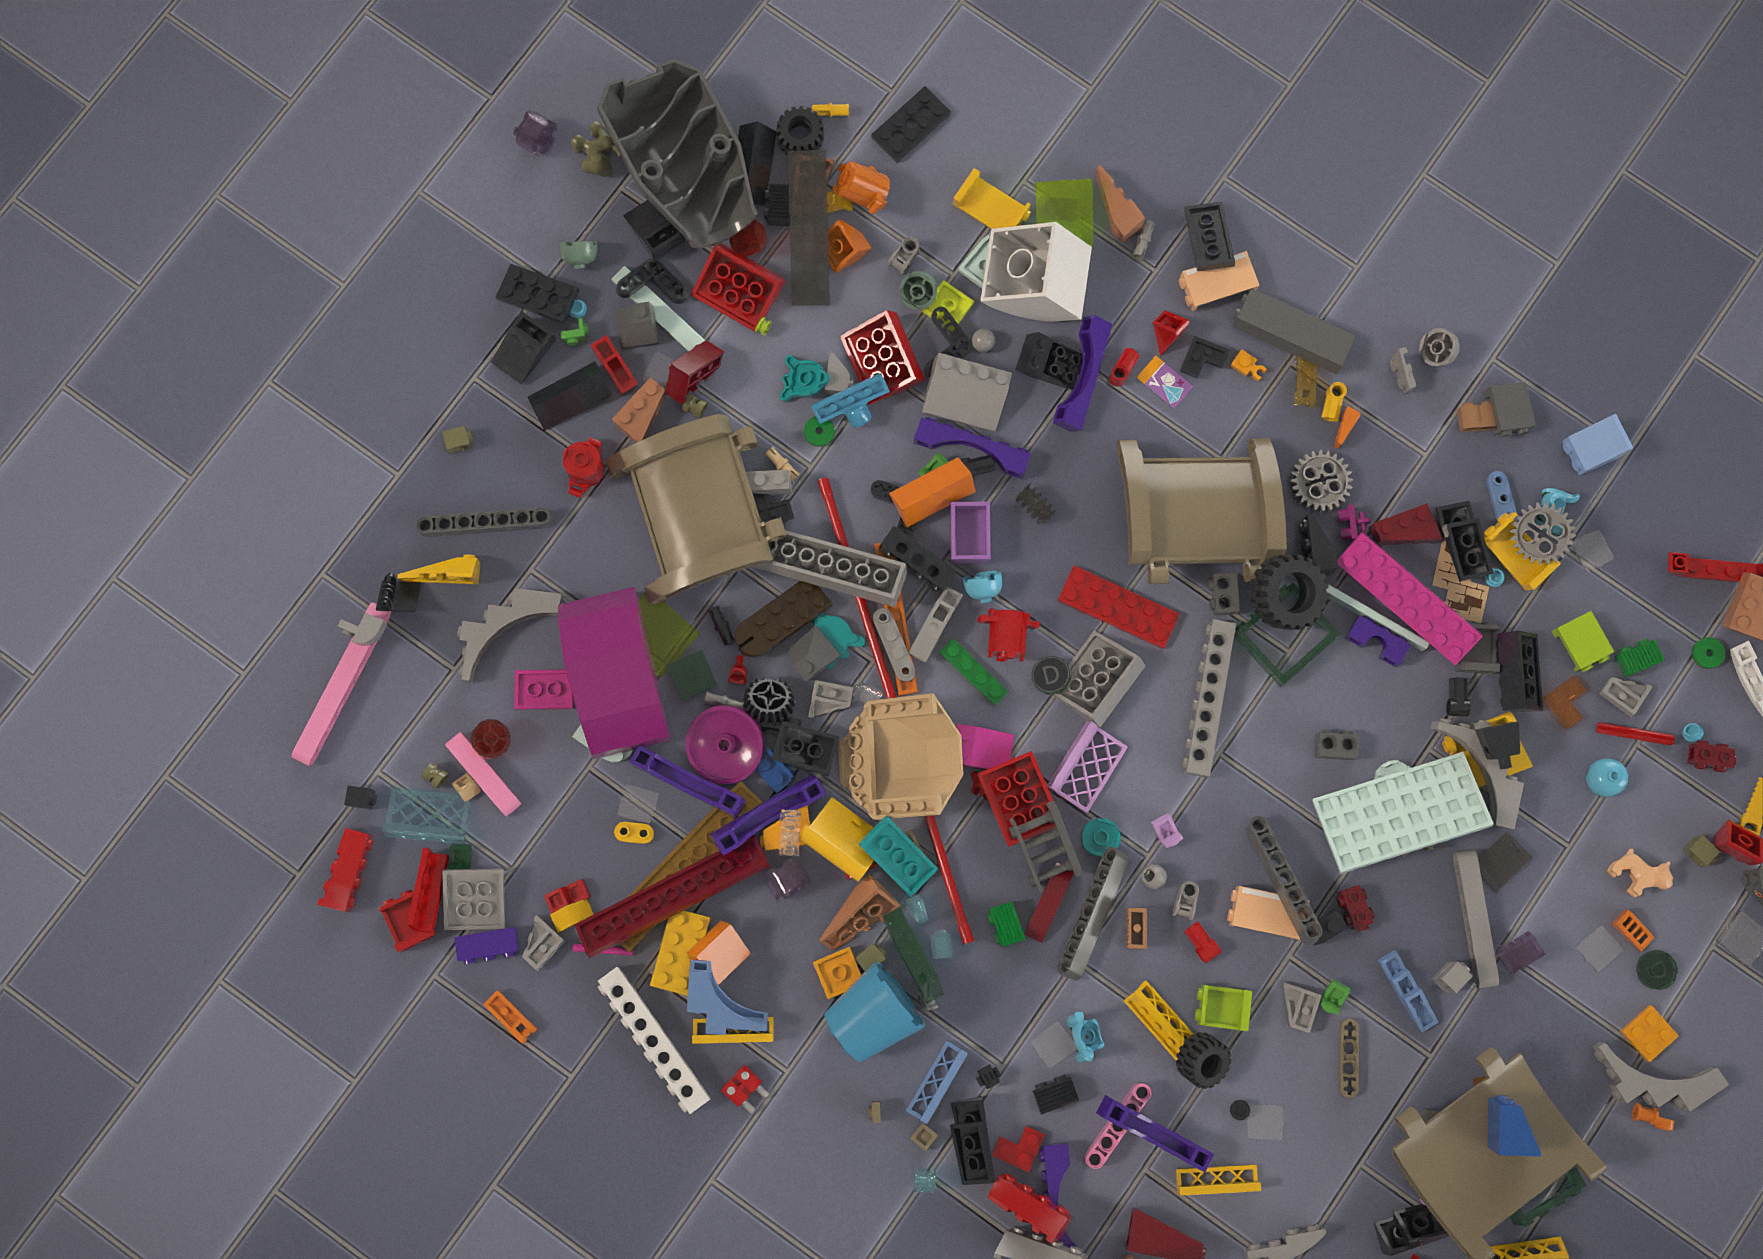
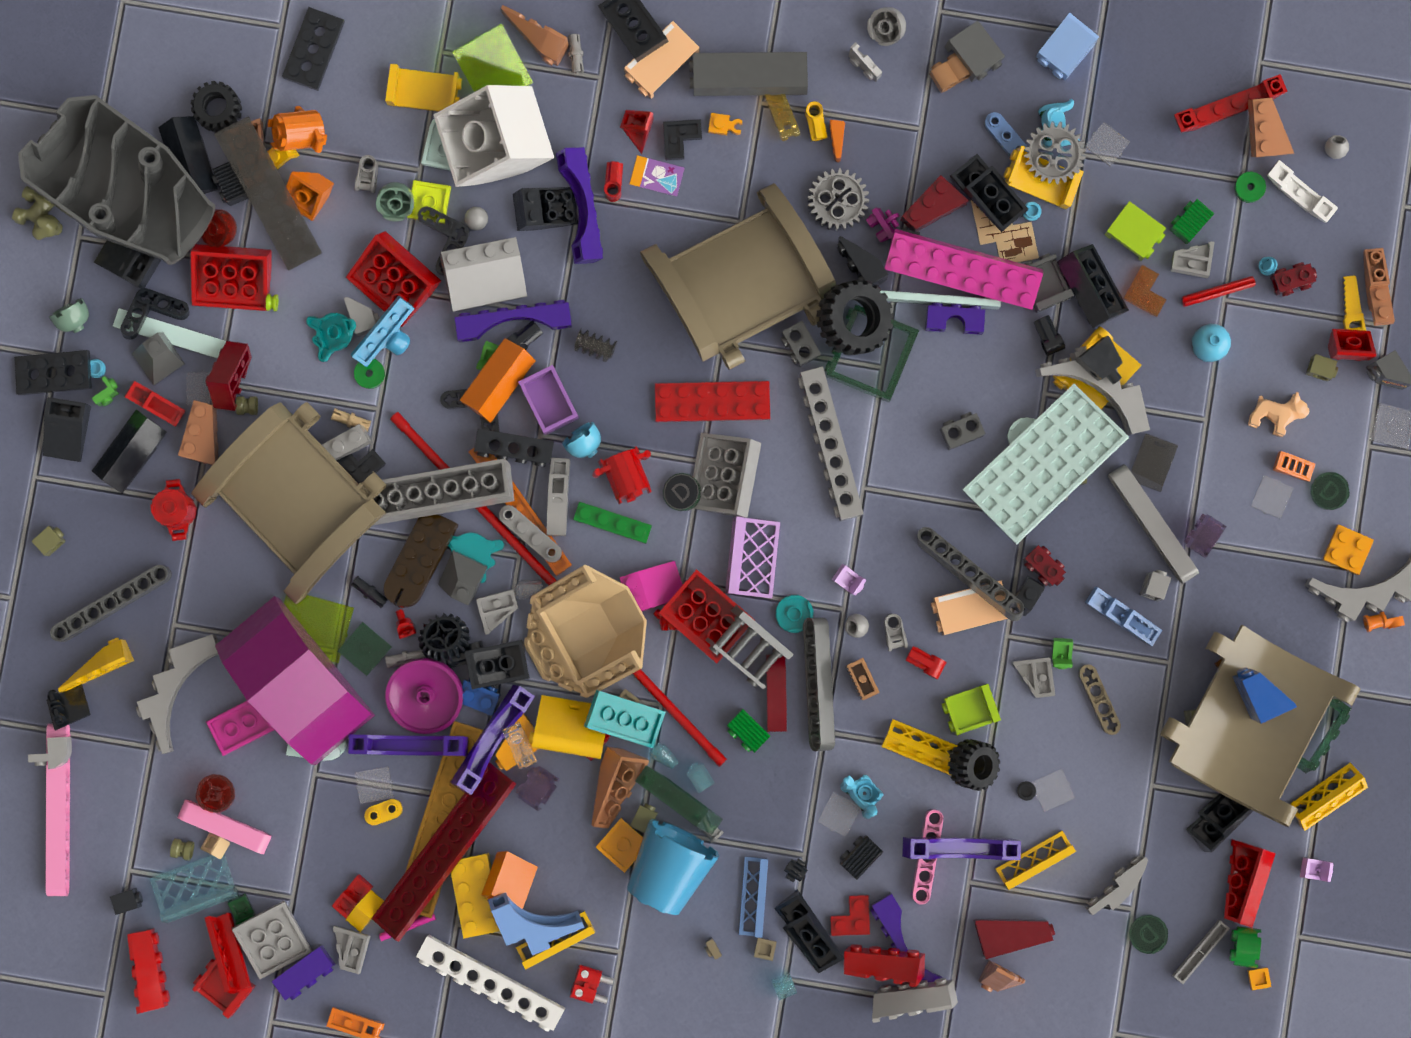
camera: 20 degrees left, 5 degrees up
(831, 109) = (233, 71): yellow axle -> none

